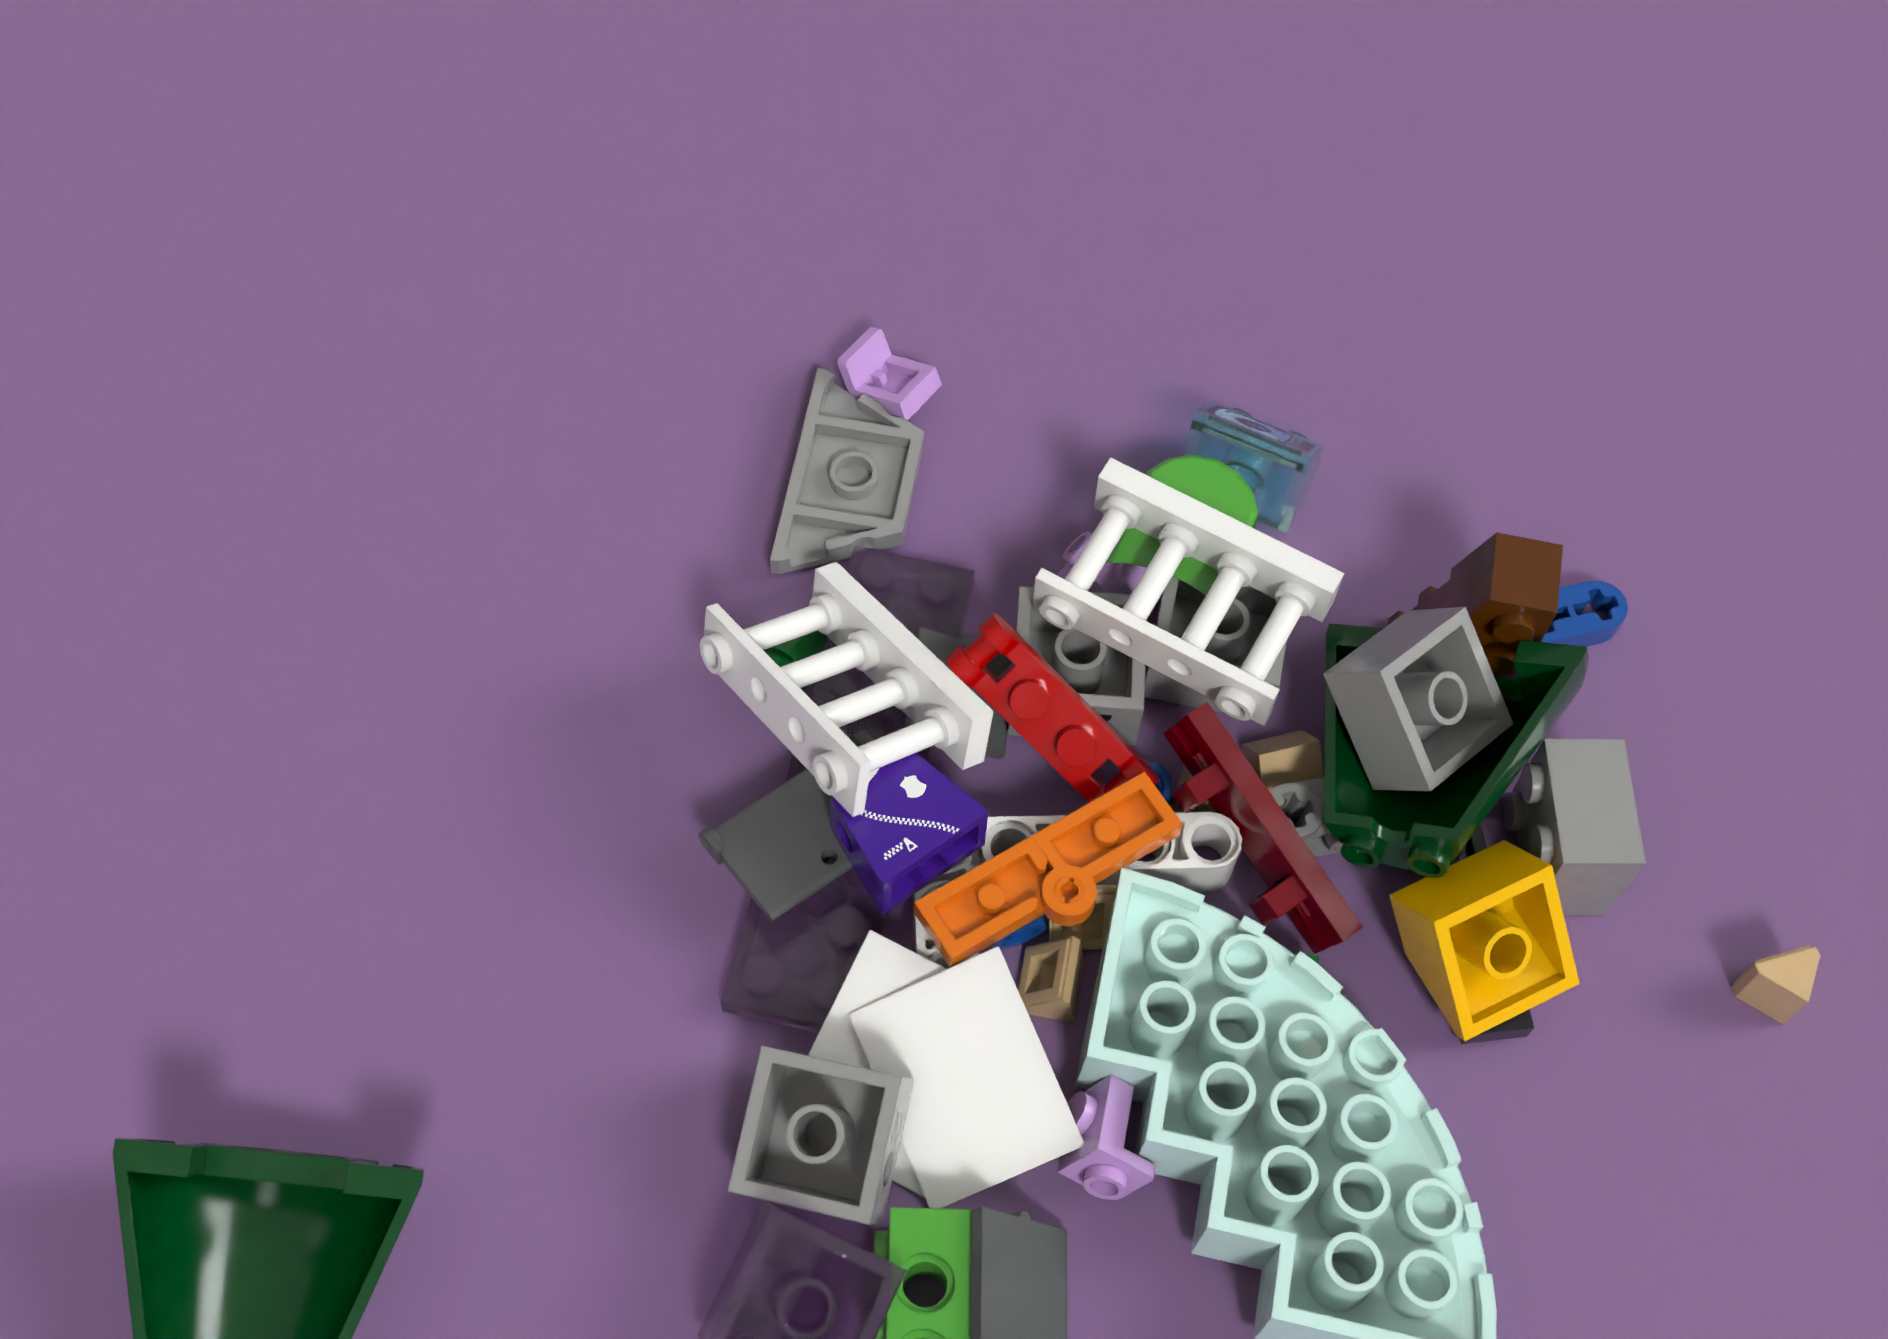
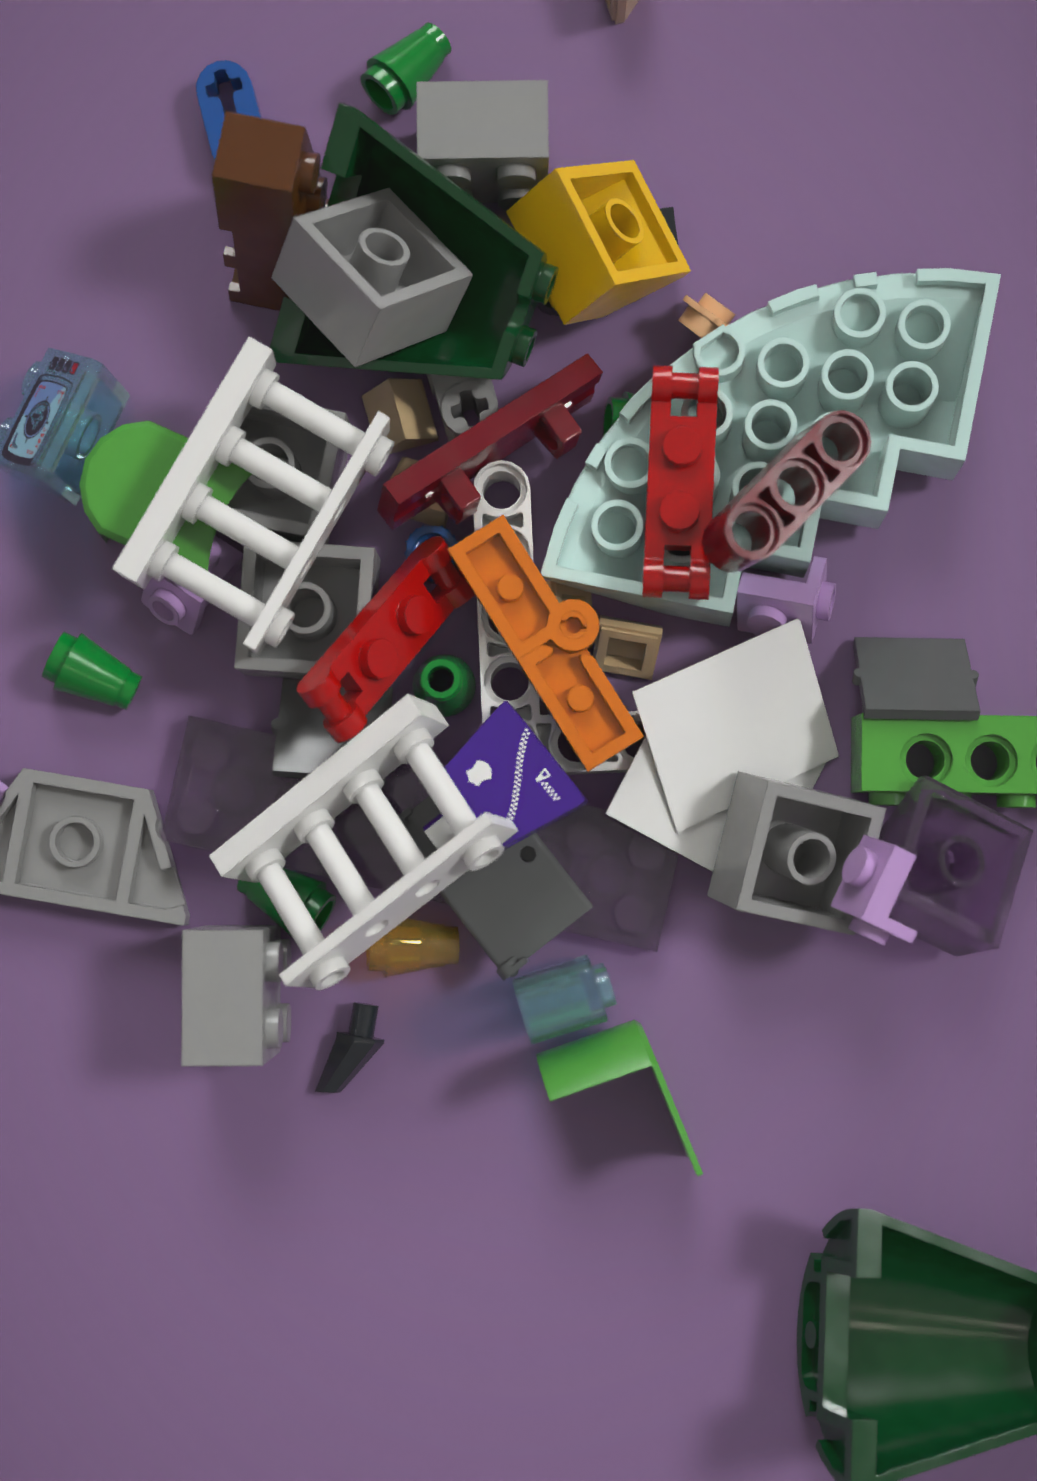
camera: 80 degrees left, 25 degrees up
(588, 980) = (605, 1058): none -> bright green piece
(639, 712) = (351, 1049): none -> black bar
(677, 887) = (563, 998): none -> clear light blue brick
(690, 567) = (233, 995): none -> light grey brick
(740, 759) = (413, 948): none -> clear yellow cone
(790, 1190) = (870, 887): none -> lavender bracket
(1009, 787) = (454, 699): none -> green cone
(1016, 488) = (90, 672): none -> green cone
(1226, 1001) = (680, 481): none -> red plate
(1255, 1104) = (811, 476): none -> beam
(1421, 1059) = (705, 315): none -> light nougat plate
(1655, 773) = (394, 71): none -> green cone

